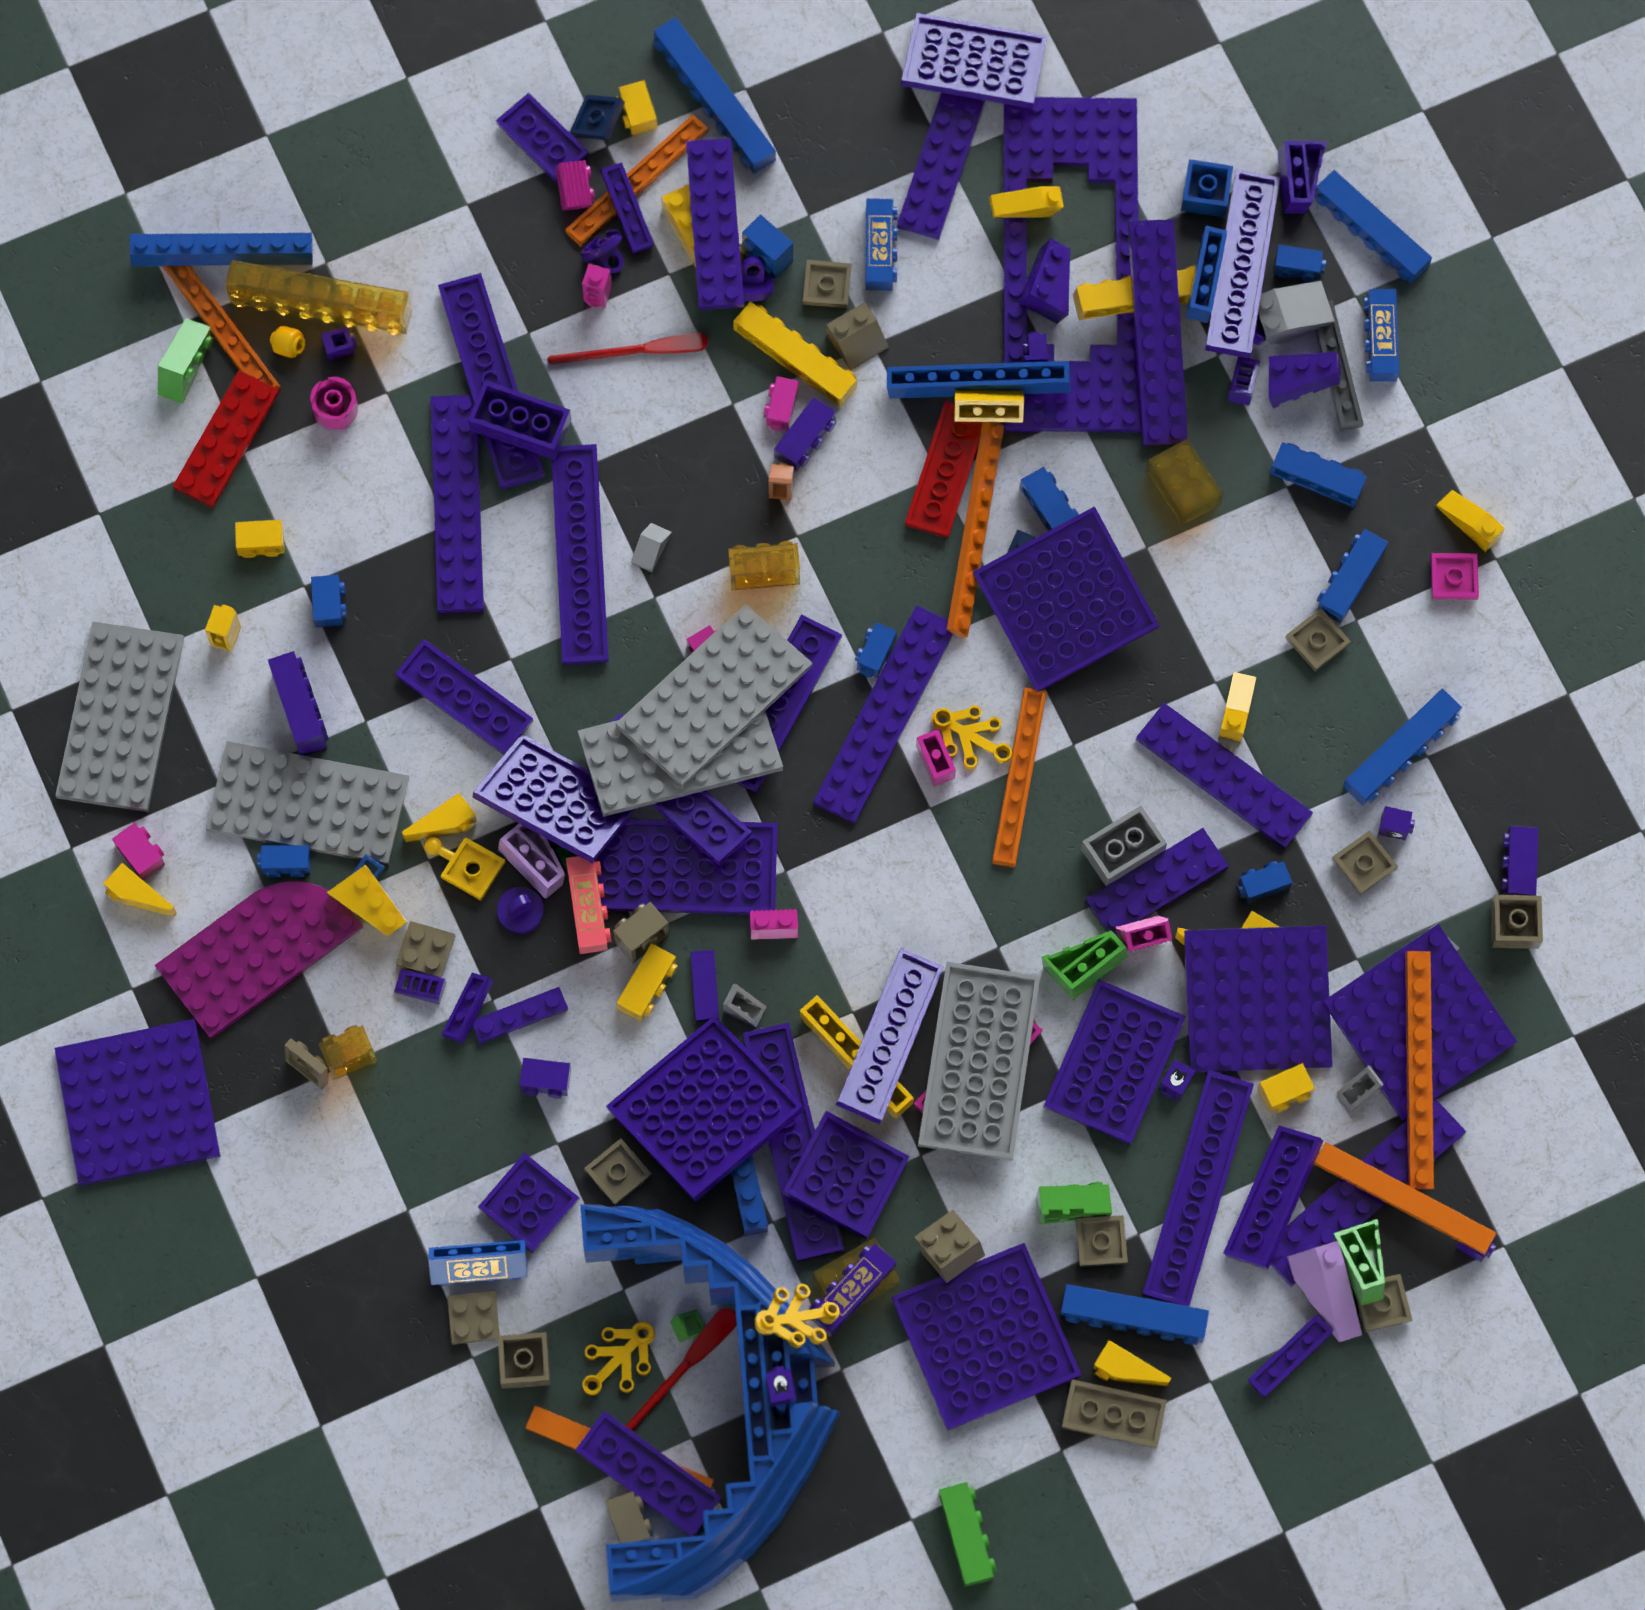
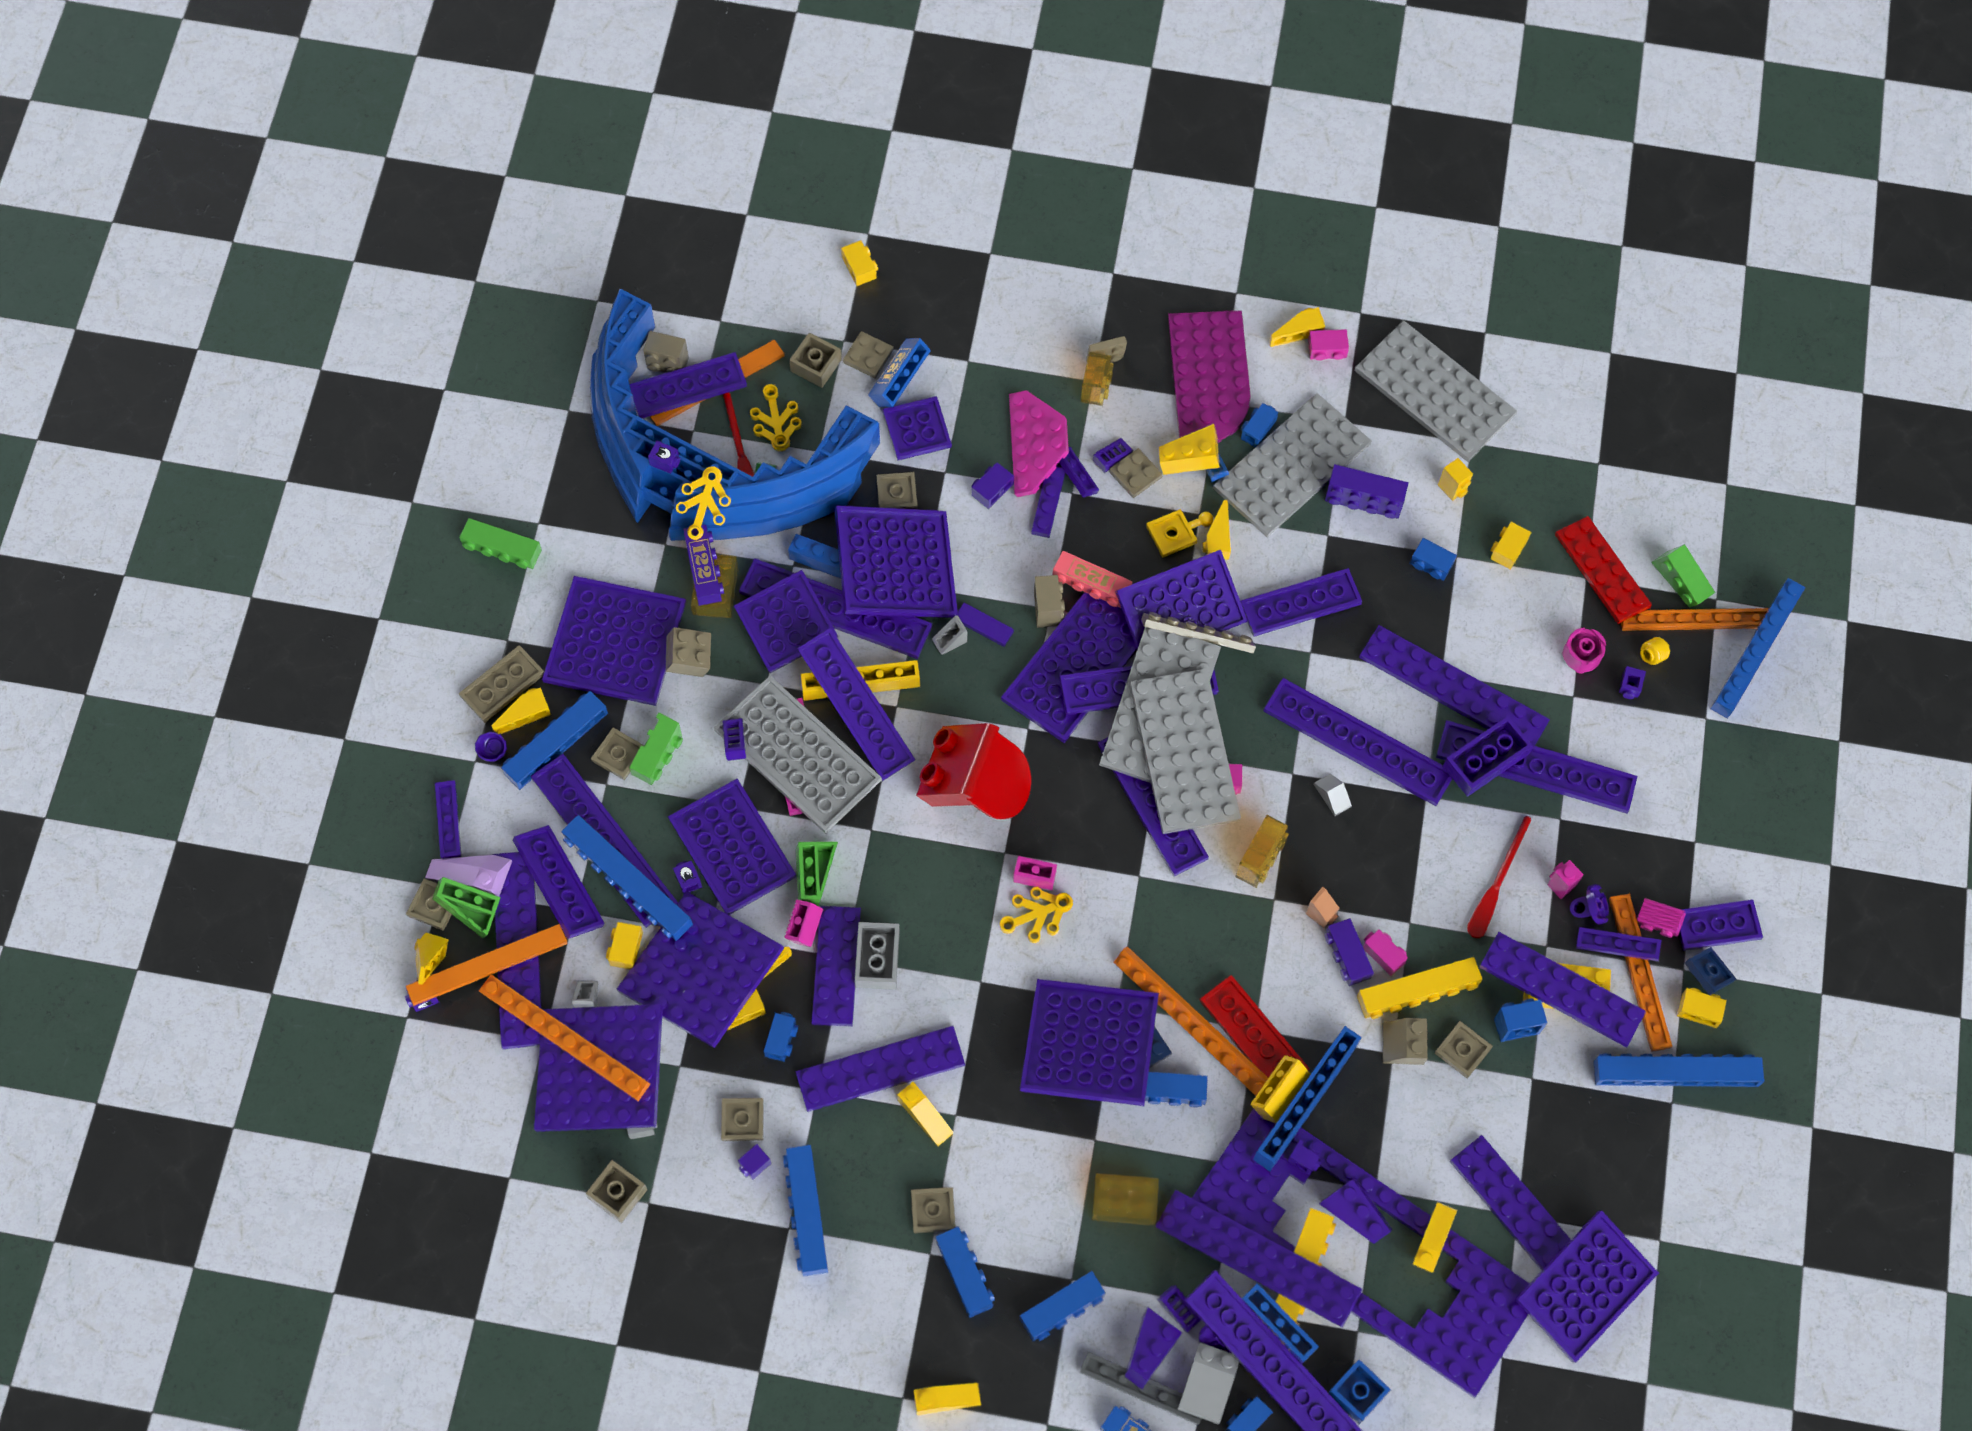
camera: 125 degrees right, 5 degrees down
(137, 1102) = (1156, 252): dark purple plate -> none
(318, 297) = (1675, 687): clear yellow brick -> none
(368, 1403) = (859, 263): none -> yellow brick
(460, 1068) = (1037, 441): none -> dark pink plate
(520, 910) = (1121, 545): dark purple tile -> none
(533, 859) = (1146, 566): lavender wedge -> none
(576, 763) = (1191, 630): none -> dark tan plate
(647, 983) = (1011, 588): yellow brick -> none
(755, 282) = (1495, 992): dark purple tile -> none
(774, 924) = (992, 691): dark pink brick -> none
(876, 650) = (1146, 890): blue brick -> none
(879, 244) = (1472, 1109): blue brick -> none
(879, 879) = (977, 769): none -> red plate
(884, 715) = (1095, 867): dark purple plate -> none
(1005, 1121) = (734, 751): none -> dark purple slope
(1019, 777) = (983, 926): orange tile -> none
(1188, 1369) = (490, 746): none -> dark purple hair
(1225, 1127) = (627, 878): none -> blue brick
(1439, 1259) = (429, 954): none -> yellow slope
(1454, 576) = (909, 1351): dark pink plate -> none
(1520, 861) = (657, 1230): dark purple brick -> none

